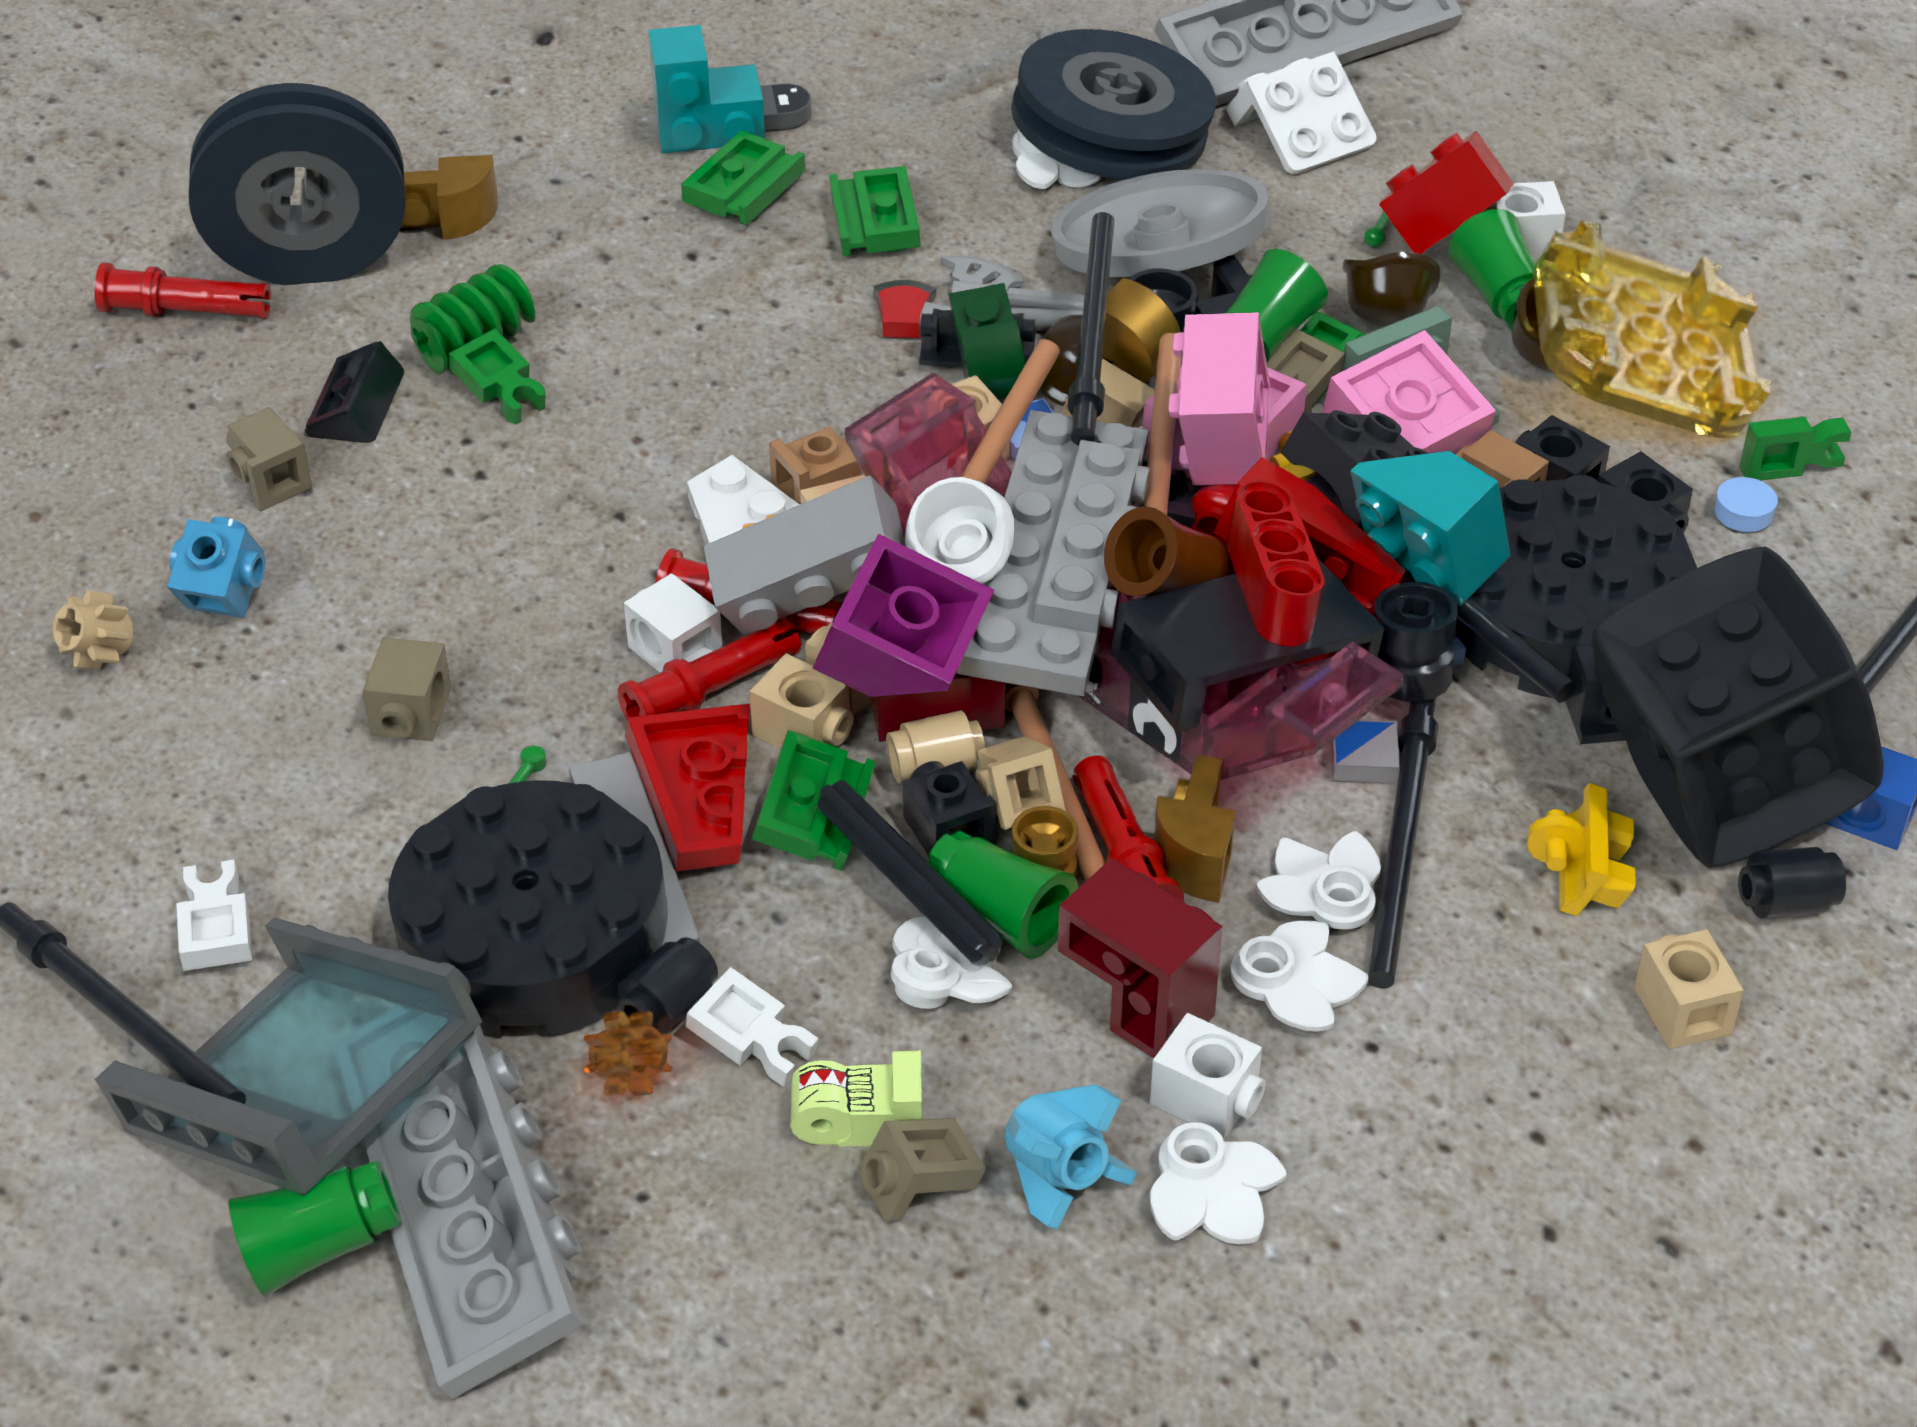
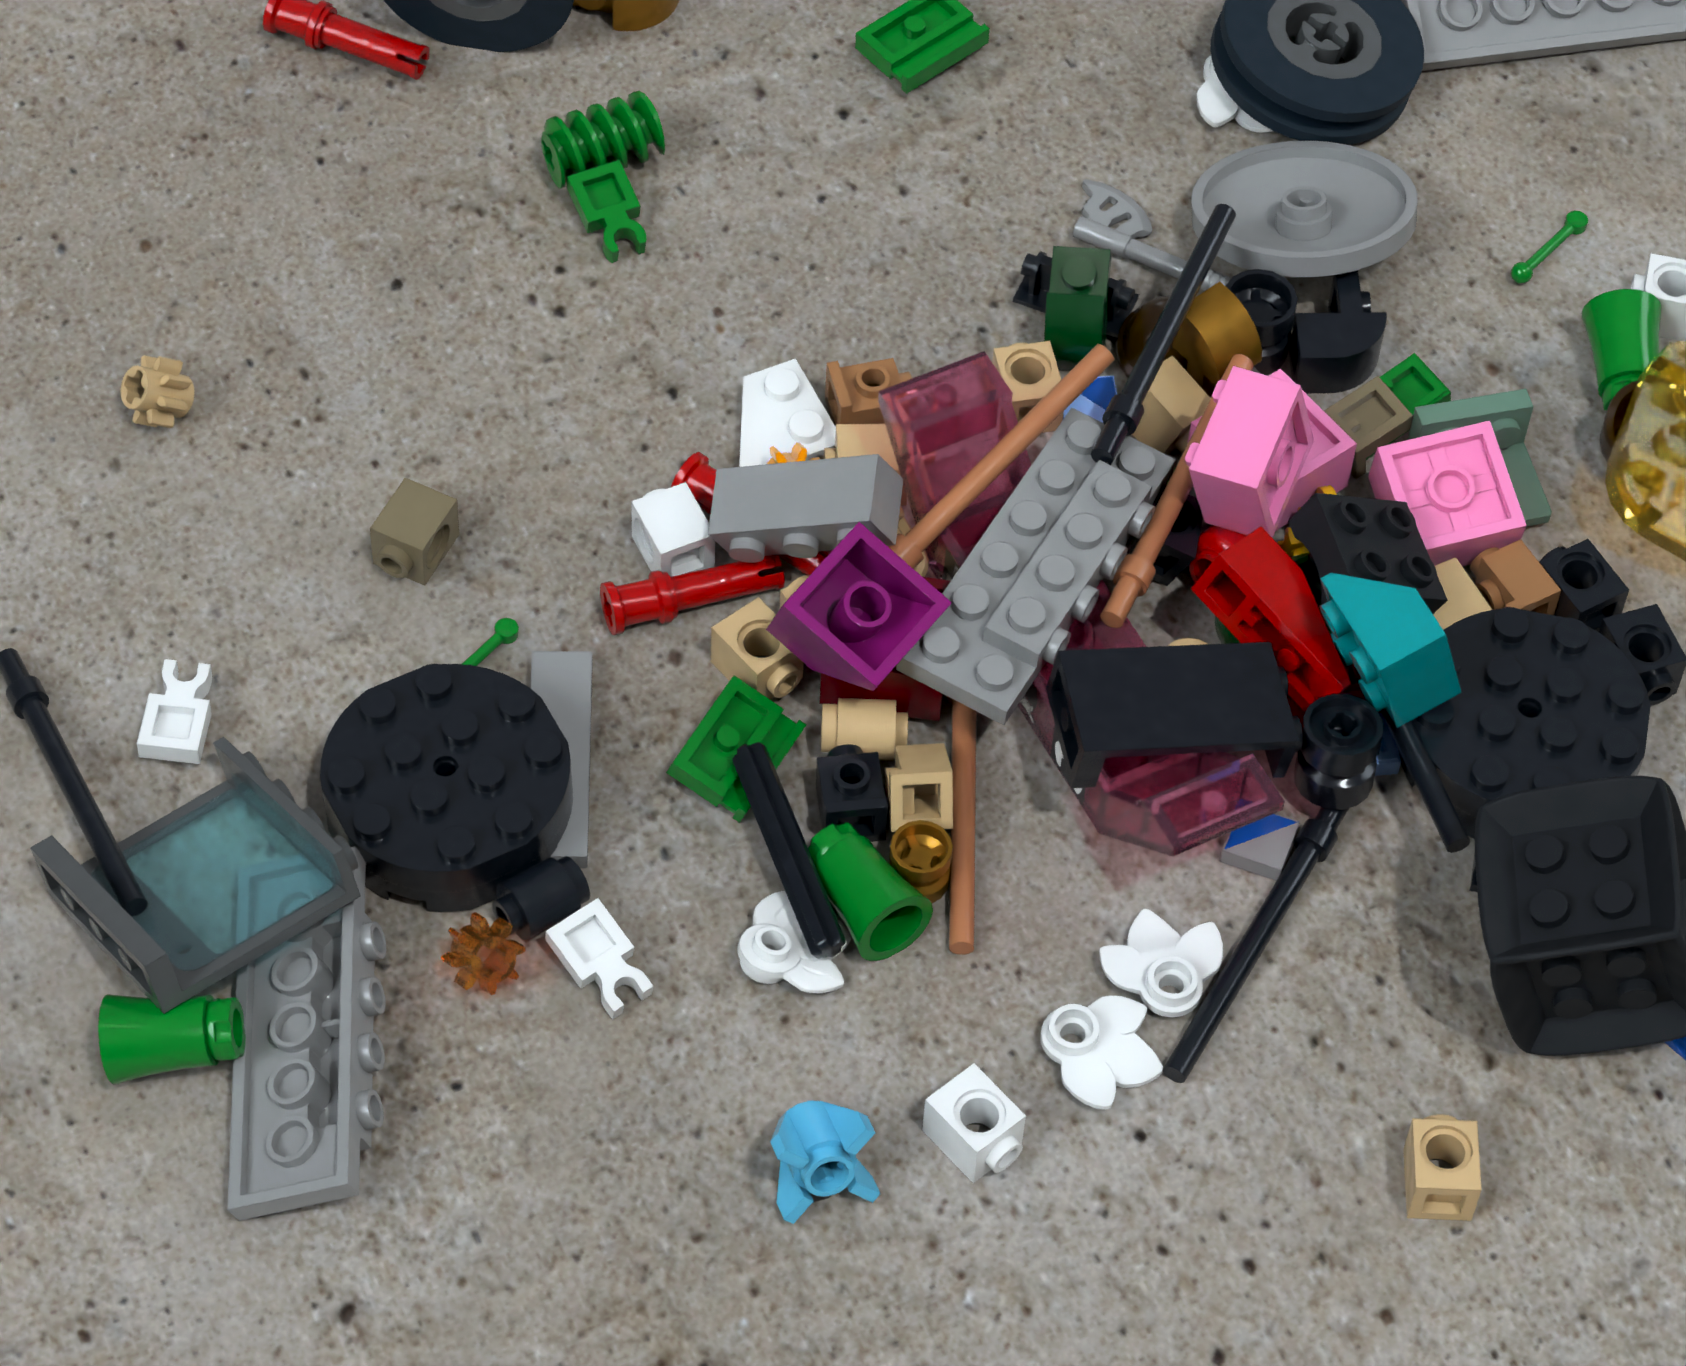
camera: 15 degrees right, 10 degrees up
(216, 567) = (284, 355): dark azure brick -> none
(268, 458) = (366, 246): dark tan brick -> none
(356, 395) = (473, 193): black slope -> none
(695, 780) = (639, 697): red wing -> none
(851, 1102) = (666, 1057): yellowish green leg -> none
(875, 211) = (1035, 112): green plate -> none
(905, 301) = (1028, 229): piece -> none
(917, 1159) = (695, 1127): dark tan bracket -> none
(962, 527) = (945, 531): white hat -> none
(1119, 824) = (999, 892): red pin -> none
(1147, 947) = (959, 993): dark red brick -> none
(1156, 554) = (1116, 612): reddish brown plant -> none
(1197, 832) = (1062, 881): pearl gold brick -> none
(1212, 1193) = (944, 1233): white plate -> none
(1275, 563) = (1216, 650): red beam -> none
(1284, 294) = (1353, 351): green plant -> none
(1305, 112) = (1512, 109): white bracket -> none
(1390, 286) = (1501, 347): dark brown helmet -> none
(1445, 192) = (1600, 253): red brick -> none
(1581, 849) = (1408, 999): yellow hips -> none
(1792, 882) = (1590, 1093): black brick -> none

